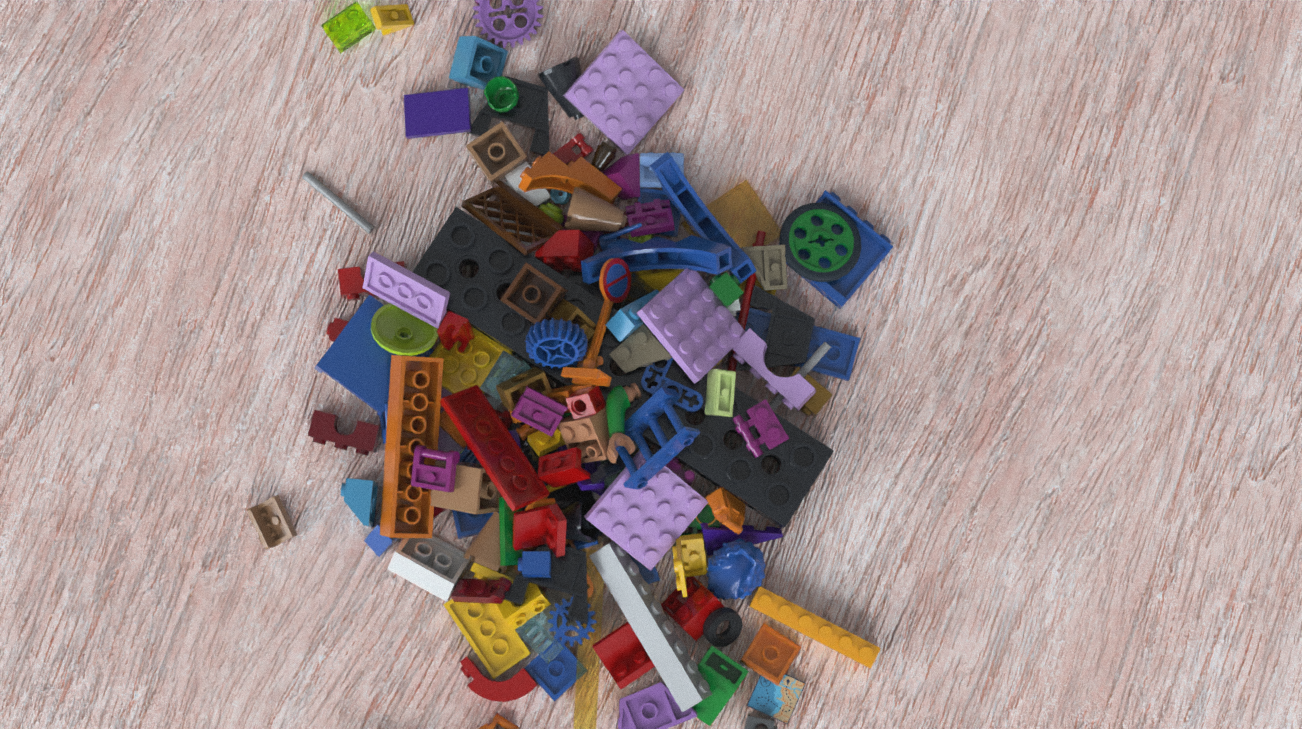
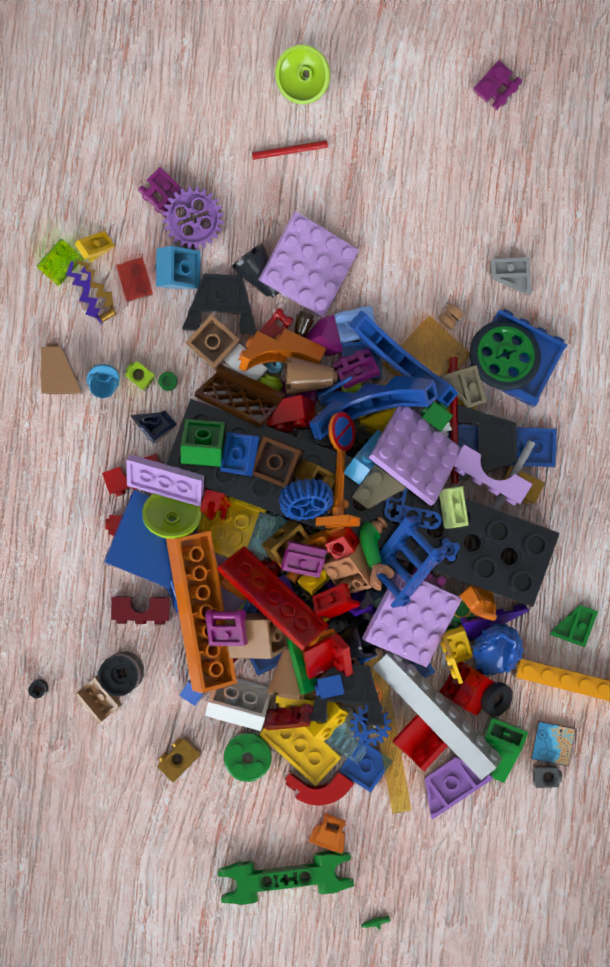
camera: 10 degrees left, 5 degrees up
(210, 500) = (36, 694): none -> black bush
(292, 498) = (110, 673): none -> black wheel
(315, 147) = (57, 372): none -> medium nougat slope
(351, 213) = (87, 414): light grey bar -> none
(359, 609) = (172, 768): none -> pearl gold brick
(361, 499) = (169, 663): dark azure slope -> none
(364, 167) = (103, 380): none -> dark azure piece
(372, 59) = (87, 285): none -> piece
(410, 231) = (154, 424): none -> dark blue slope
(413, 178) = (148, 377): none -> lime brick
(427, 65) = (134, 279): none -> clear red plate
(437, 113) = (153, 319): dark purple tile -> none
(437, 186) = (168, 381): none -> green tile
(439, 621) = (257, 747): none -> green plate
(457, 256) = (202, 442): none -> green slope
(494, 277) = (239, 453): none -> blue tile
(501, 94) = (205, 290): green hair -> none
(710, 437) = (454, 547): none -> blue plate
(767, 426) = (499, 525): magenta plate -> none
(769, 186) = (450, 316): none -> medium nougat wheel
(770, 654) = (541, 711): orange tile -> none
(832, 566) = (576, 626): none -> green wing
(850, 154) = (512, 273): none -> light grey wing

